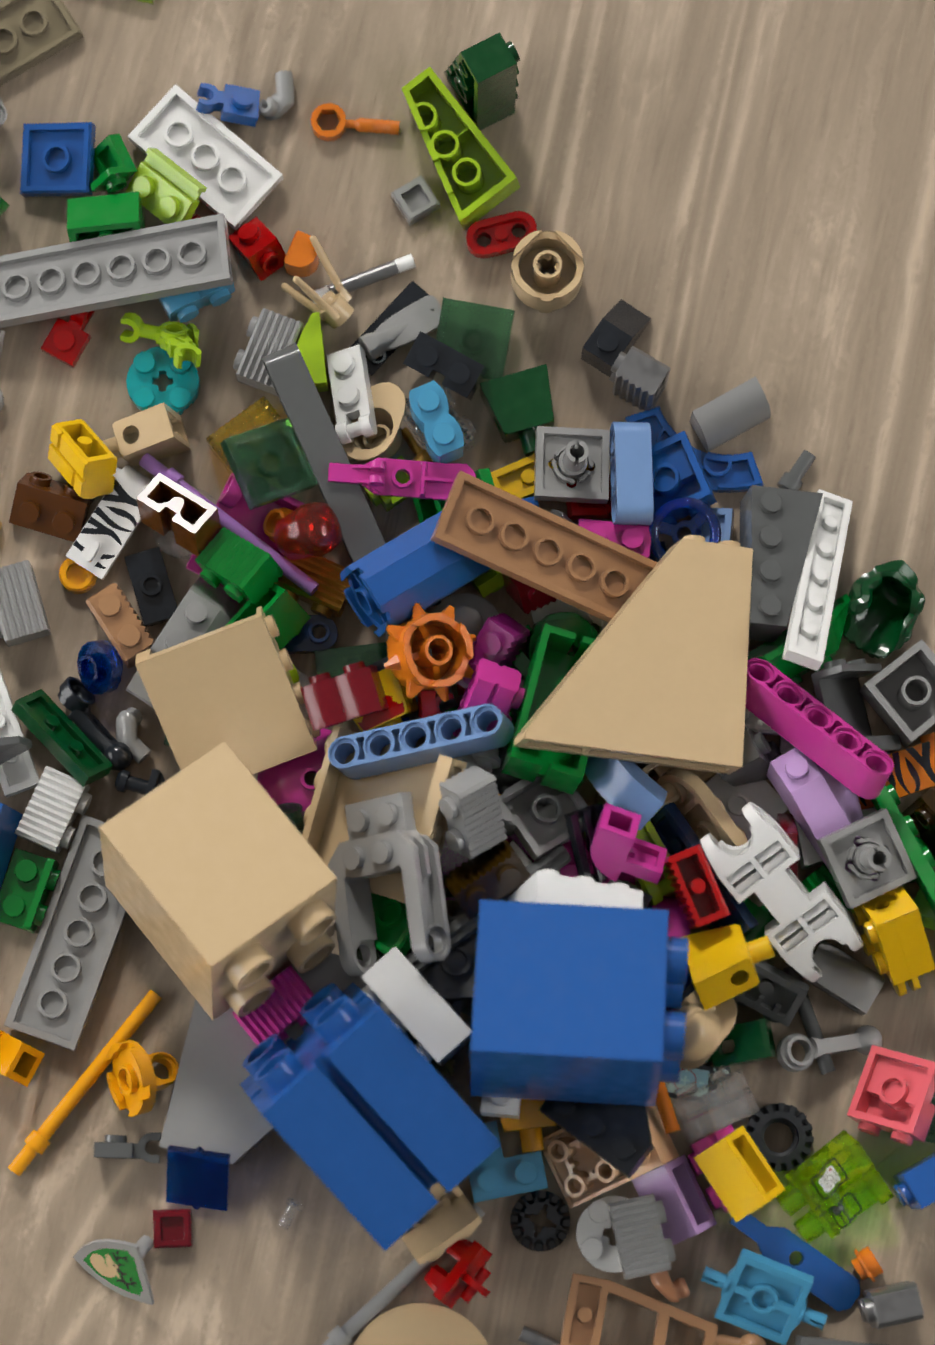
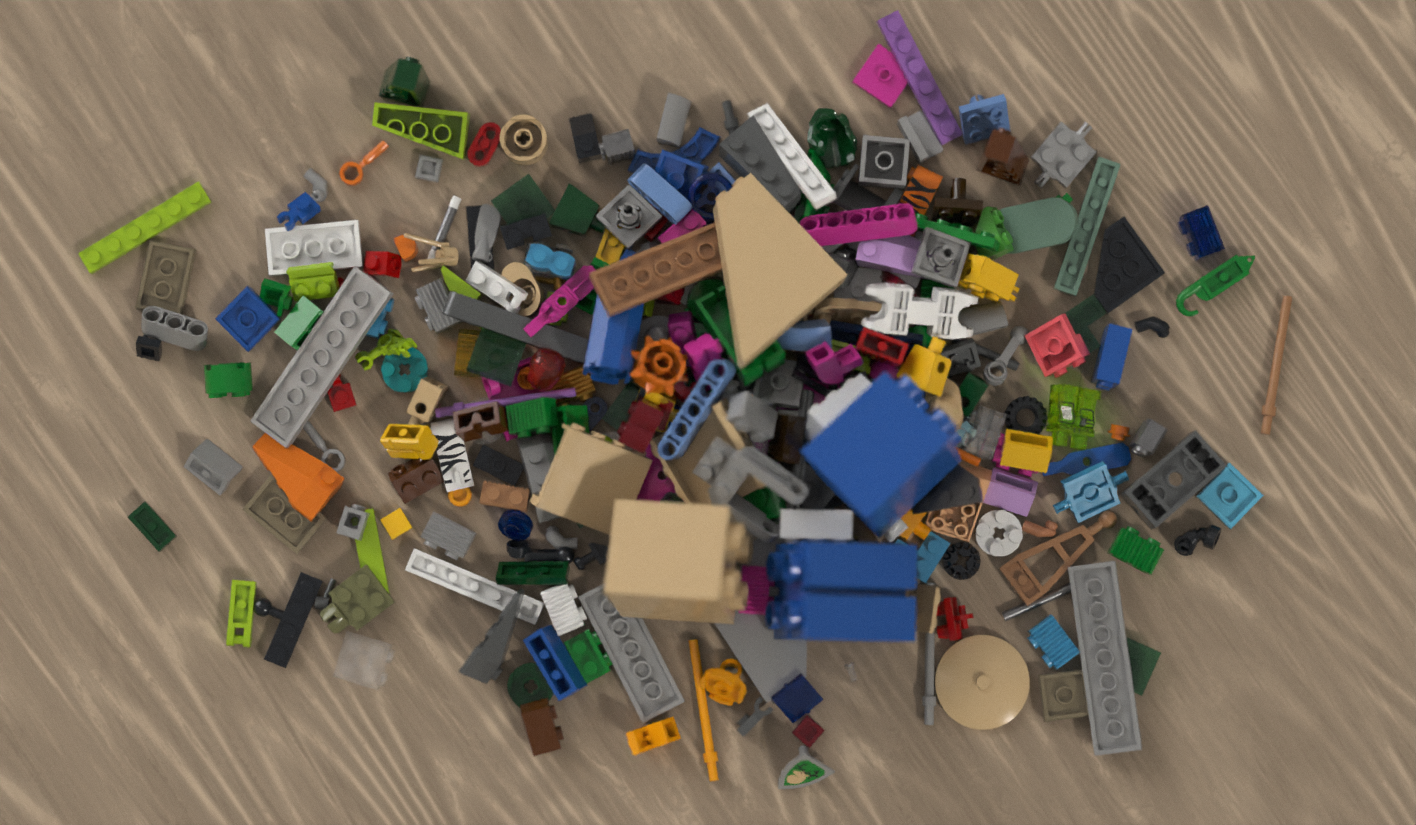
camera: 45 degrees left, 5 degrees up
(640, 1236) = (1012, 522): light grey brick -> none

